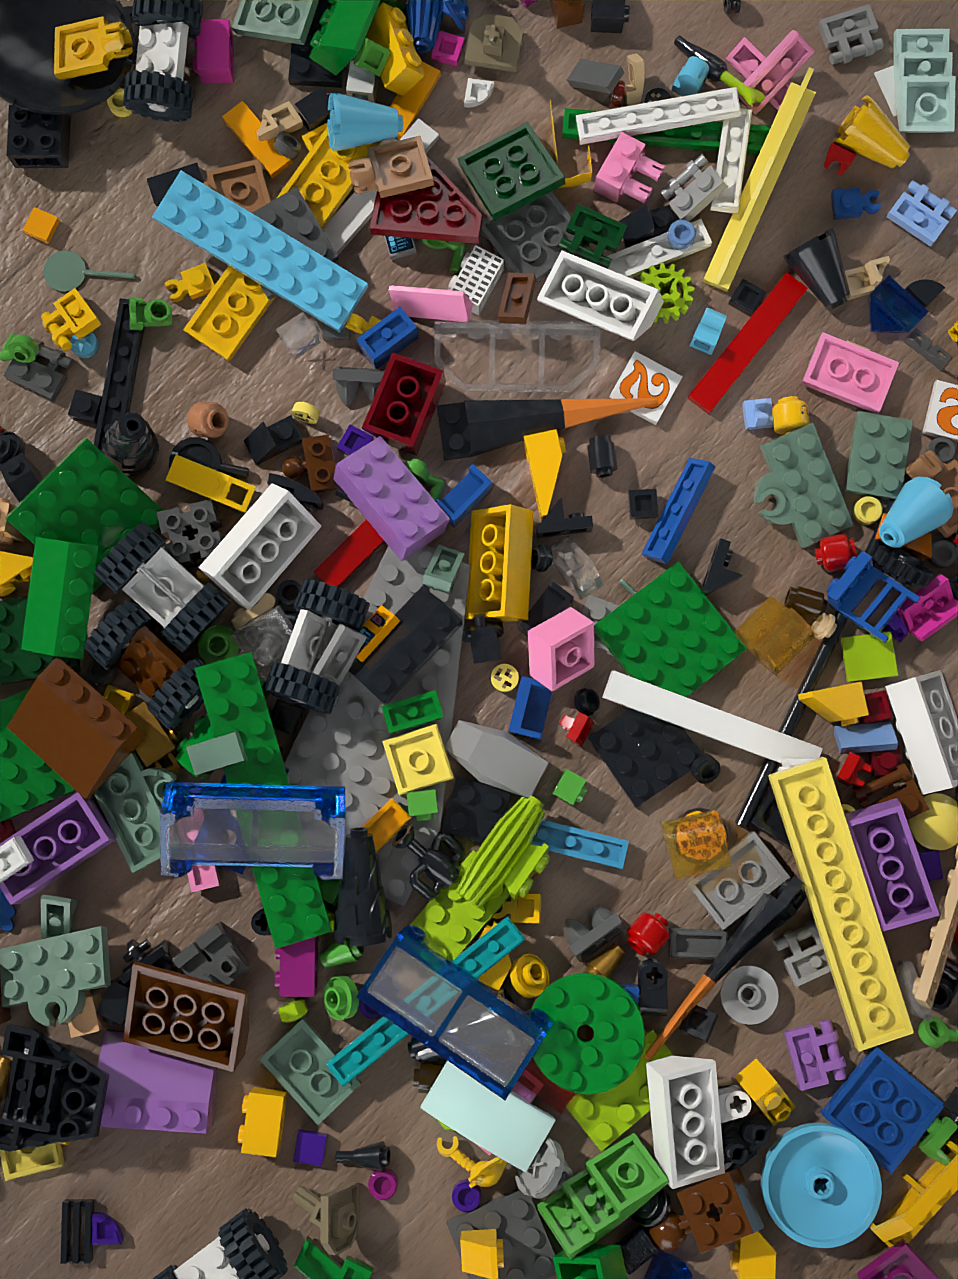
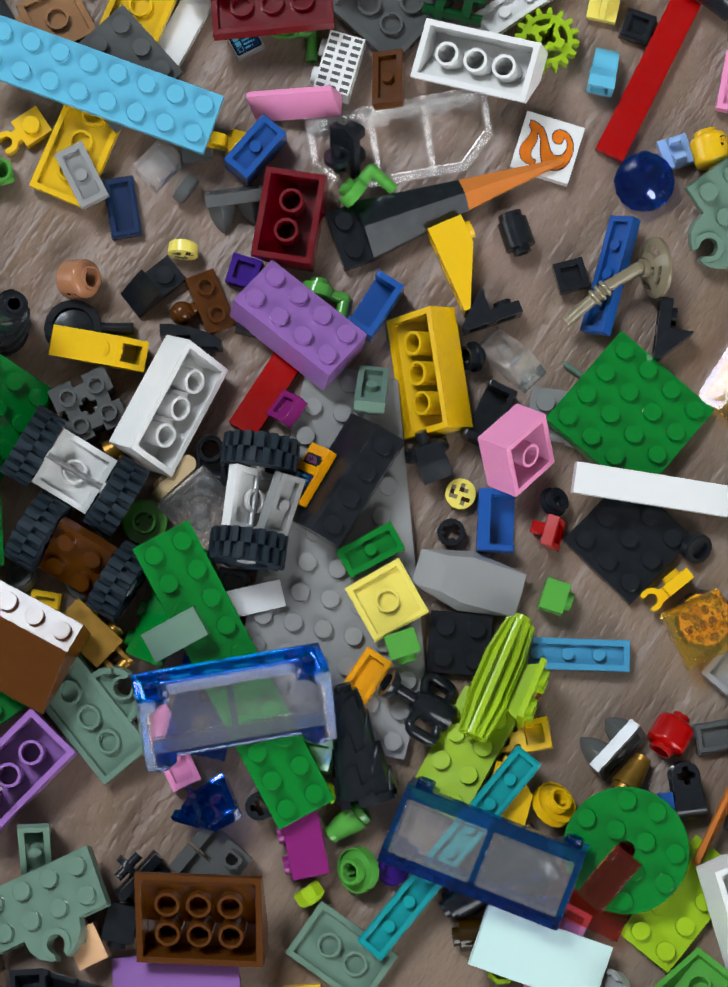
camera: 15 degrees left, 0 degrees up
(220, 913) = (209, 806): none -> clear blue slope
(229, 329) = (81, 175): none -> light grey plate
(261, 366) = (122, 208): none -> dark blue tile
(301, 734) = (257, 598): none -> white sticker
(319, 360) = (186, 188): none -> dark grey tile
(366, 571) = (287, 408): none -> magenta plate
(465, 353) = (345, 148): none -> black hips
(465, 388) = (353, 189): none -> bright green plate
(489, 701) = (450, 522): none -> black bush
(564, 1057) = (609, 878): none -> clear red tile
(679, 796) = (673, 582): none -> yellow plate
(713, 511) = (648, 269): none -> dark tan dish
(725, 434) = (644, 181): none -> clear blue dish

